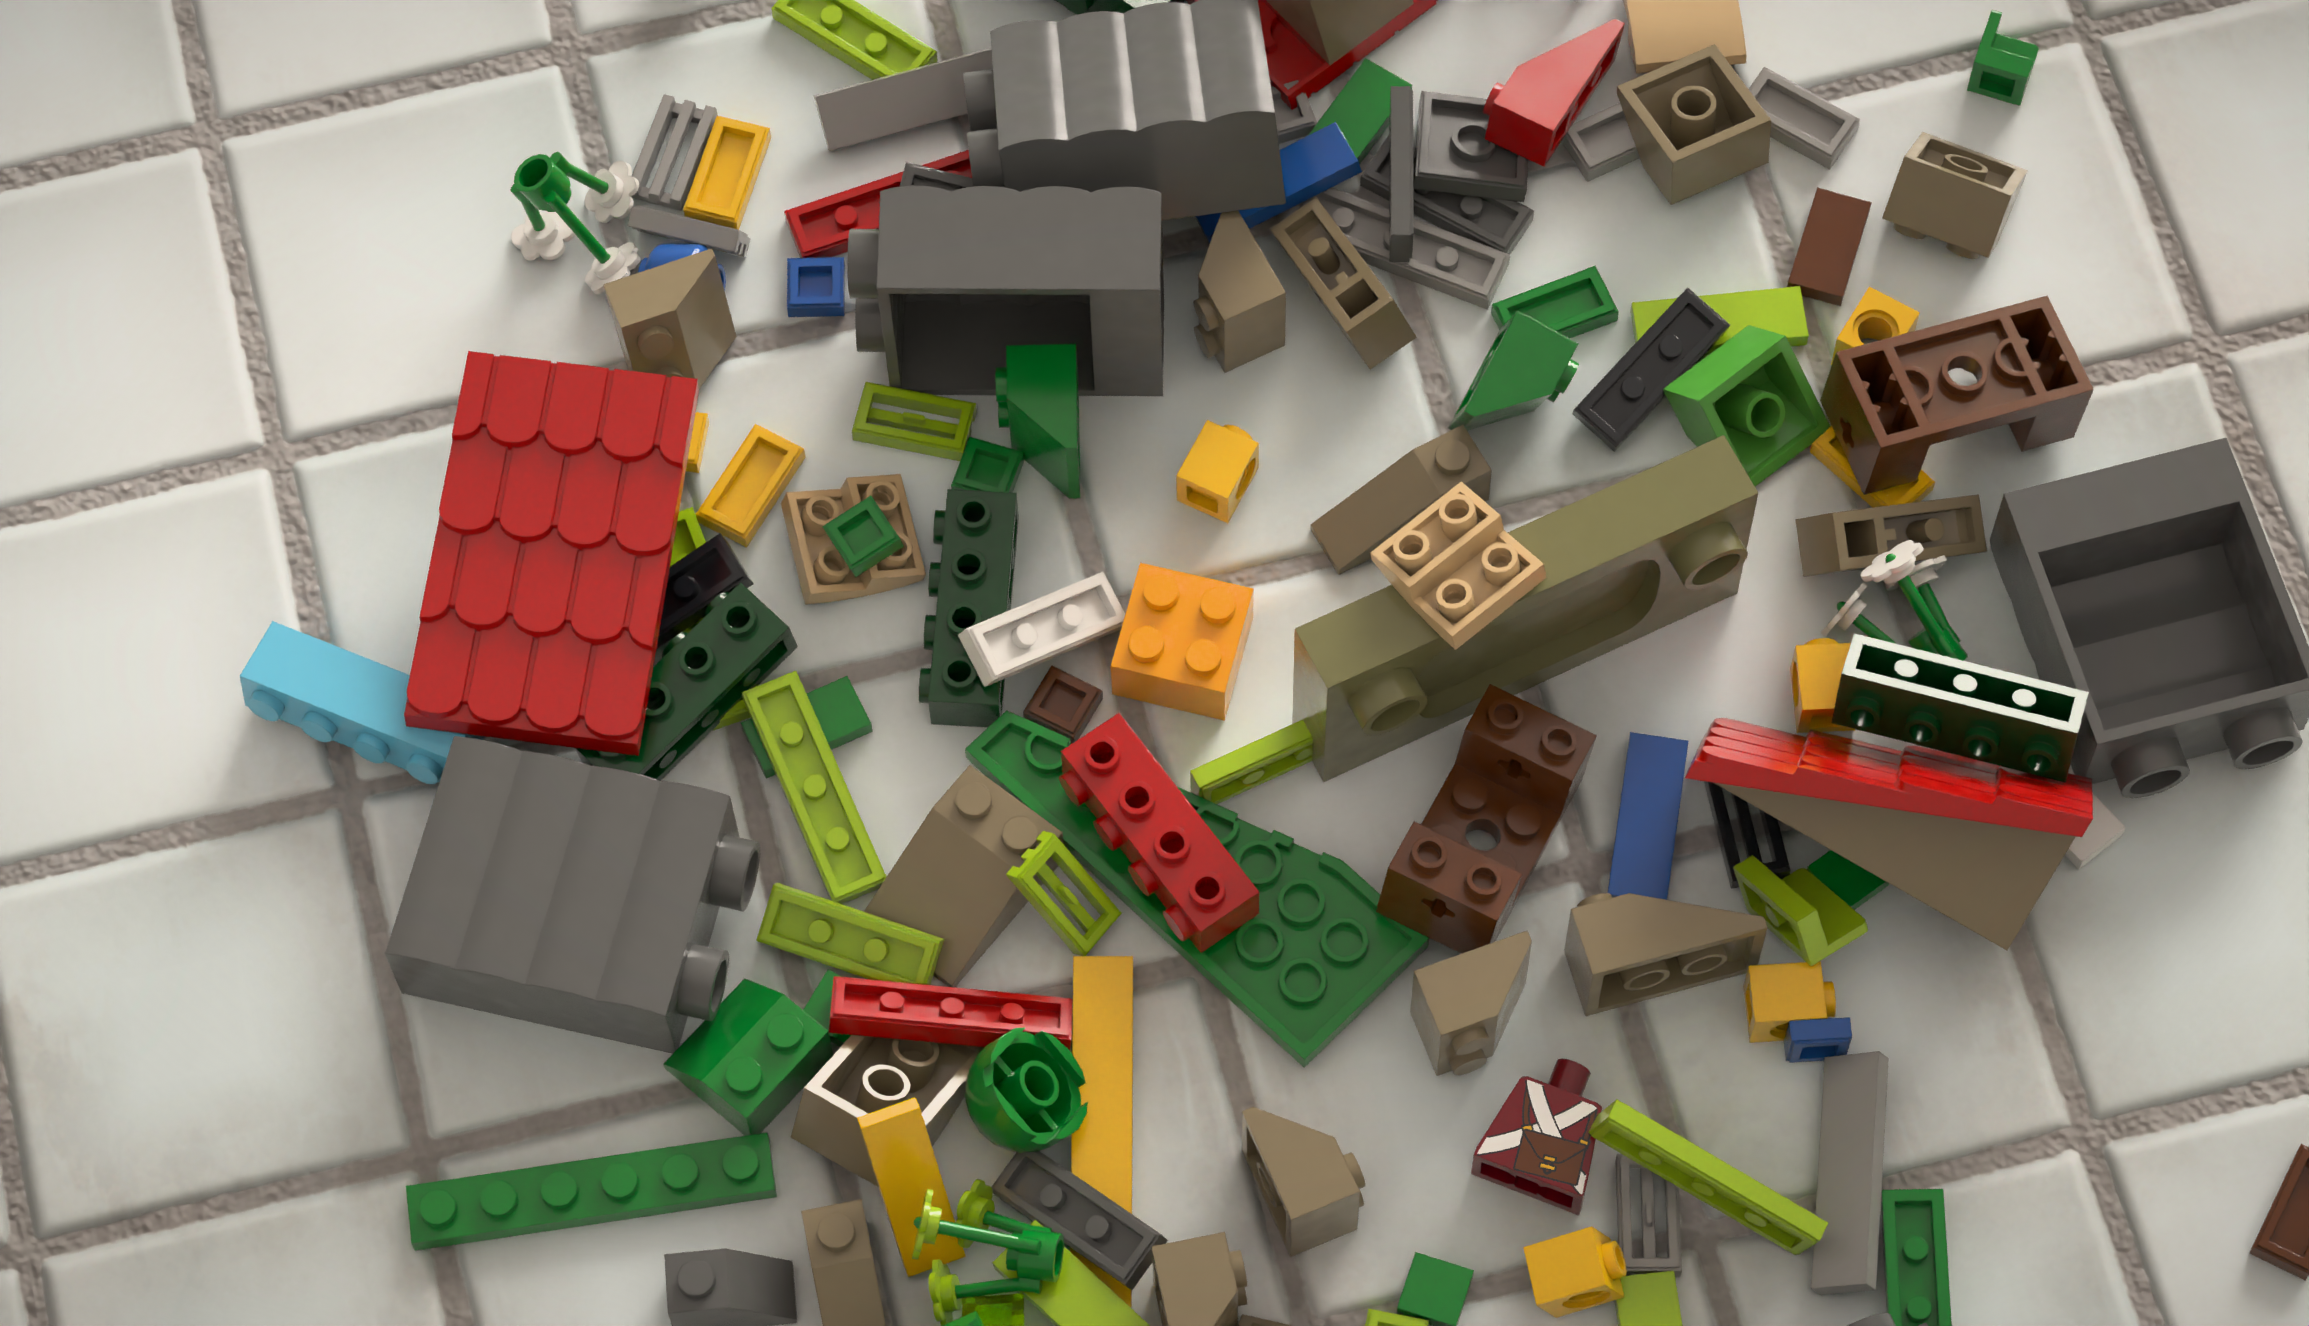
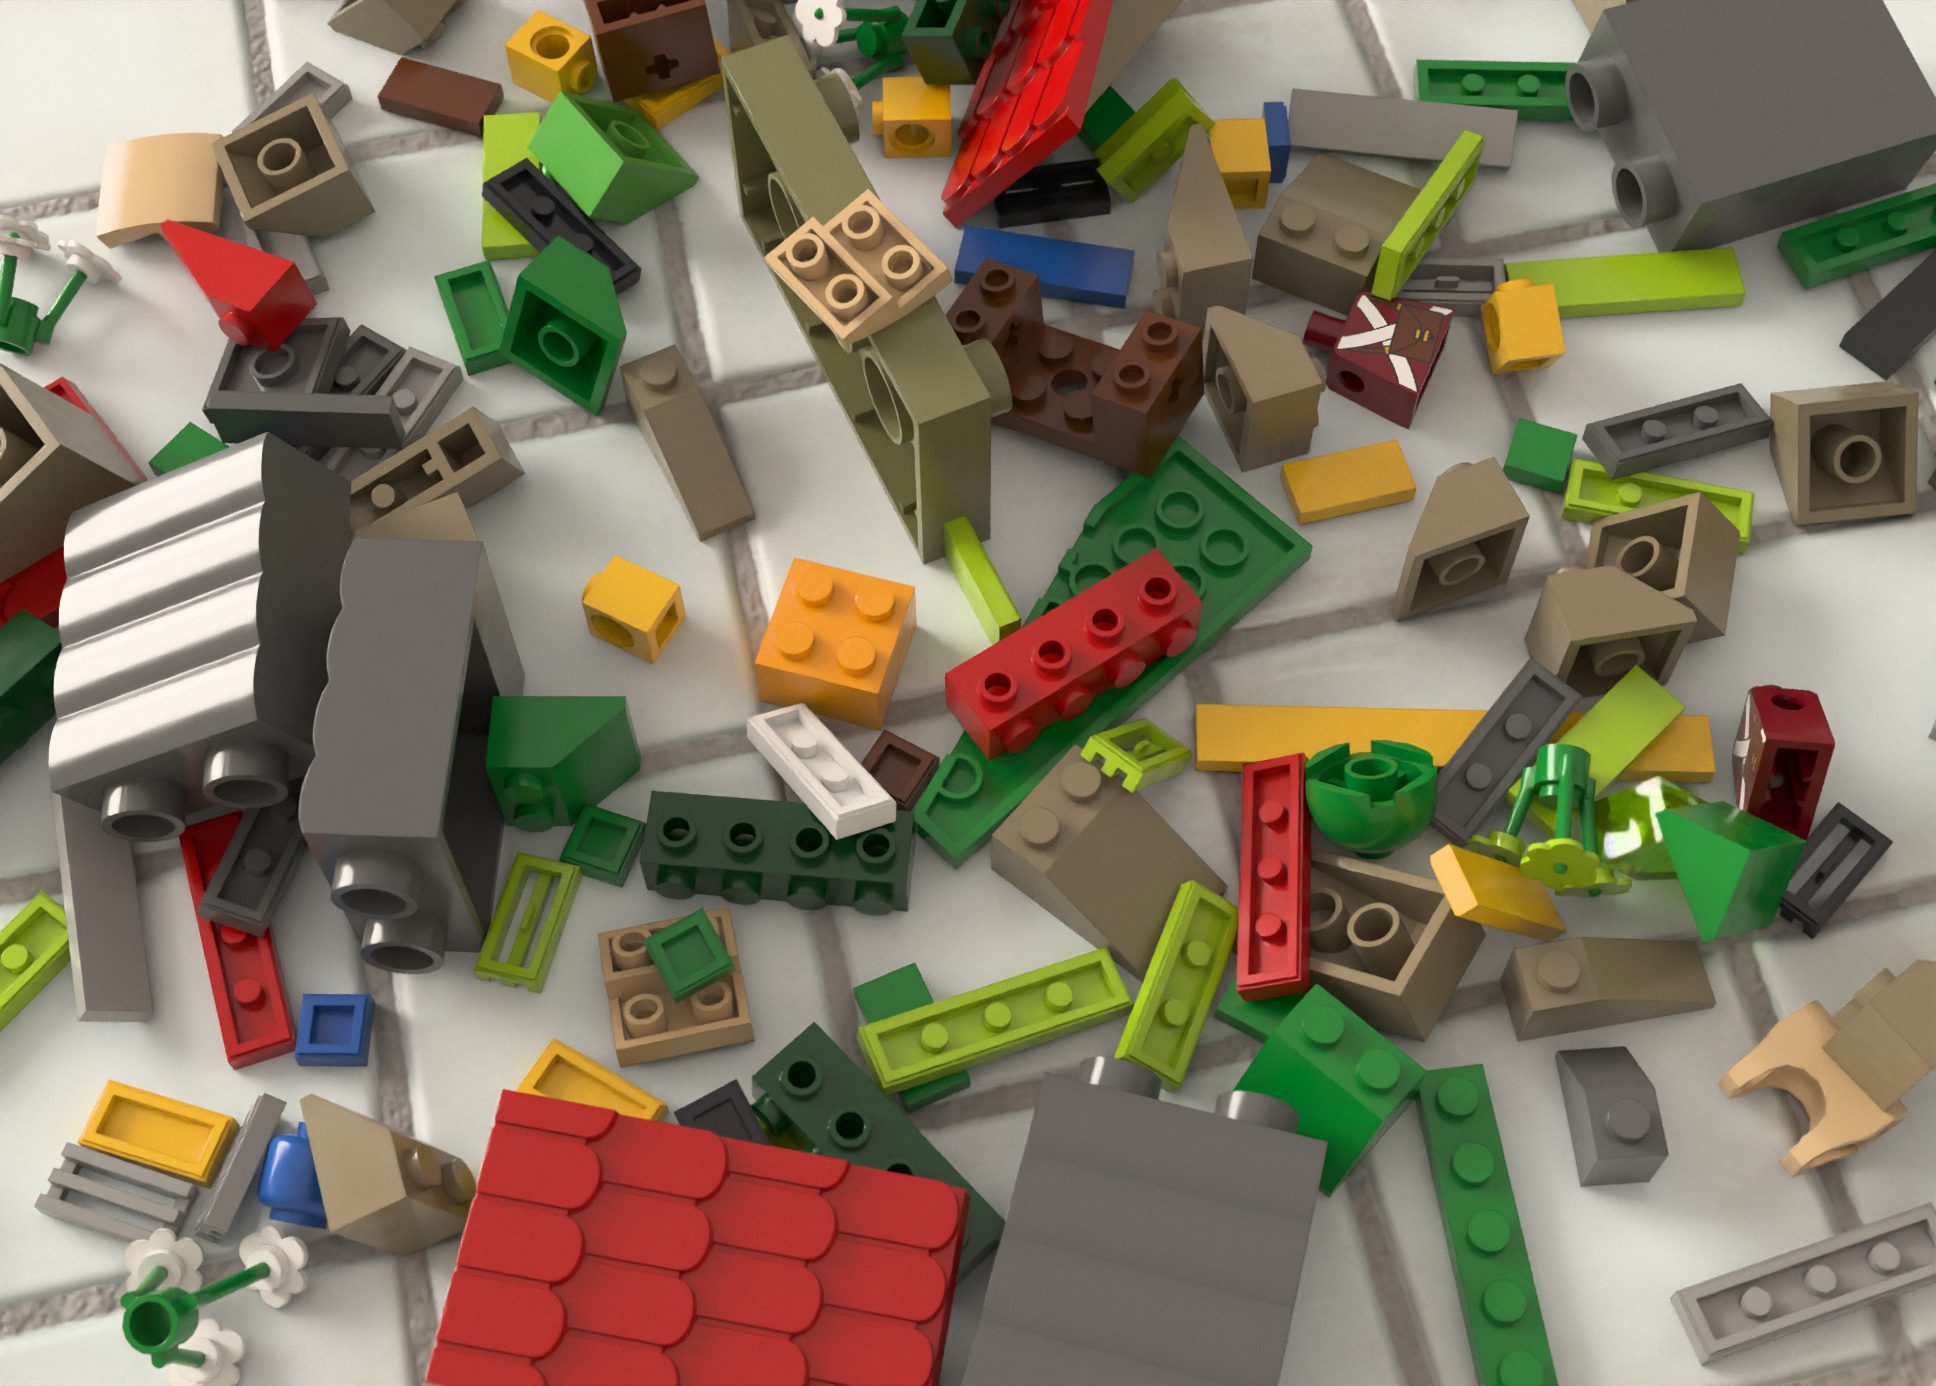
camera: 90 degrees left, 5 degrees down
(1394, 1106) = (1347, 482): none -> yellow tile
(1720, 1095) = (1330, 232): none -> dark tan slope

